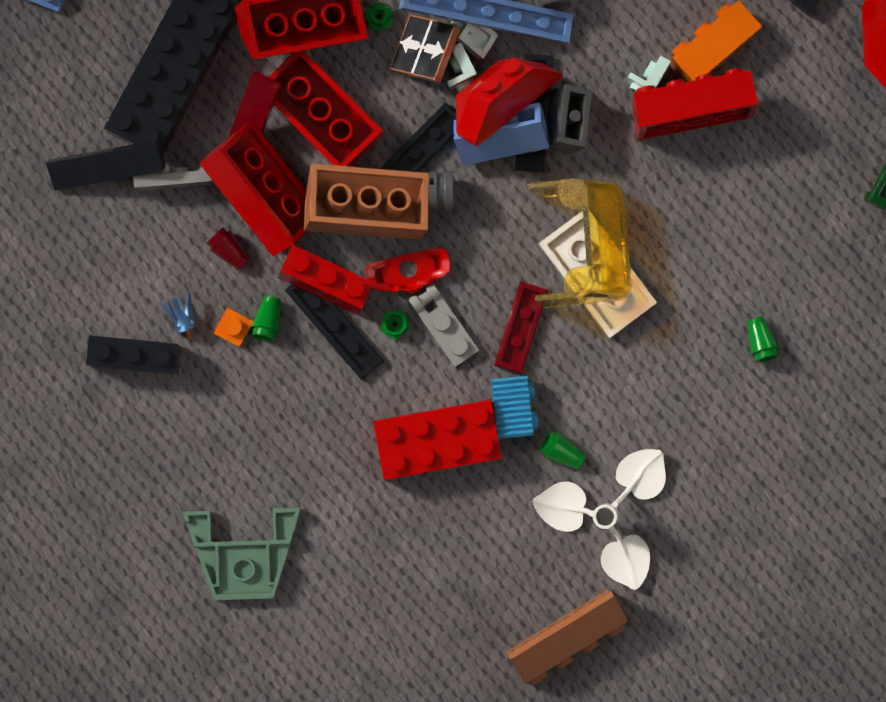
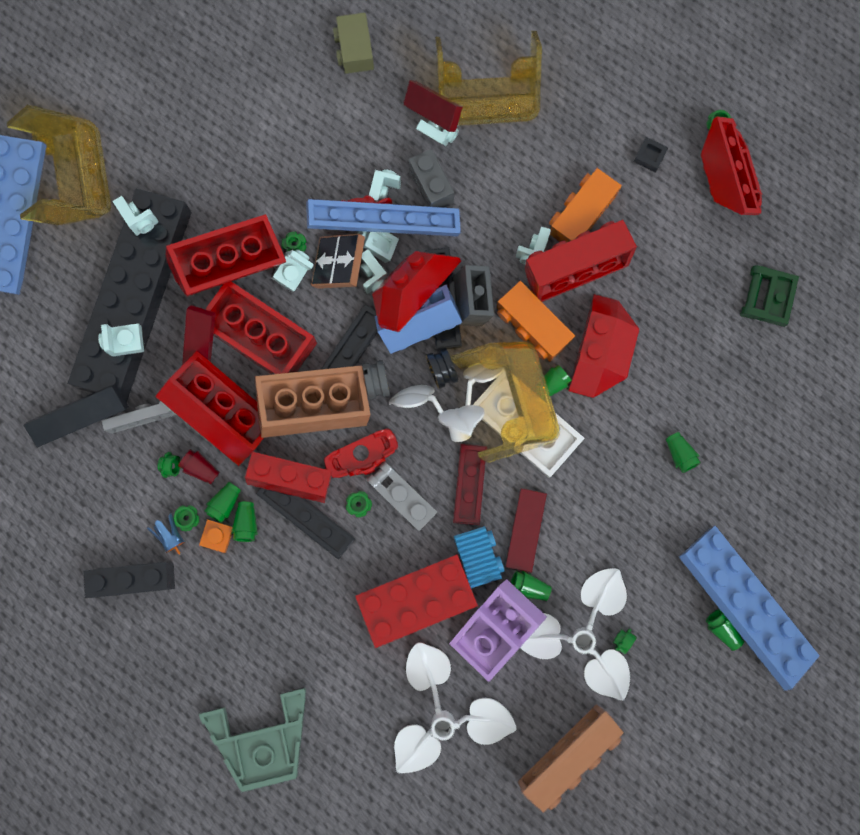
camera: 10 degrees left, 5 degrees down
(173, 93) = (121, 339): none -> light aqua bracket
(193, 237) = (165, 465): none -> green plate
(211, 305) = (183, 511): none -> green plate
(246, 293) = (222, 503): none -> green cone
(370, 51) = (293, 270): none -> light aqua bracket
(407, 596) = (419, 749): none -> white plant
(516, 193) = (442, 367): none -> black wheel
(517, 489) = (497, 630): none -> lavender slope
(522, 256) = (459, 420): none -> white plant
(571, 389) = (526, 530): none -> dark red tile
(630, 161) = (534, 322): none -> orange brick
(640, 232) = (556, 379): none -> green cone
(651, 528) = (624, 640): none -> green plate
(702, 206) = (604, 348): none -> red wedge
(762, 537) = (724, 630): none -> green cone
(793, 520) = (750, 608): none -> medium blue plate

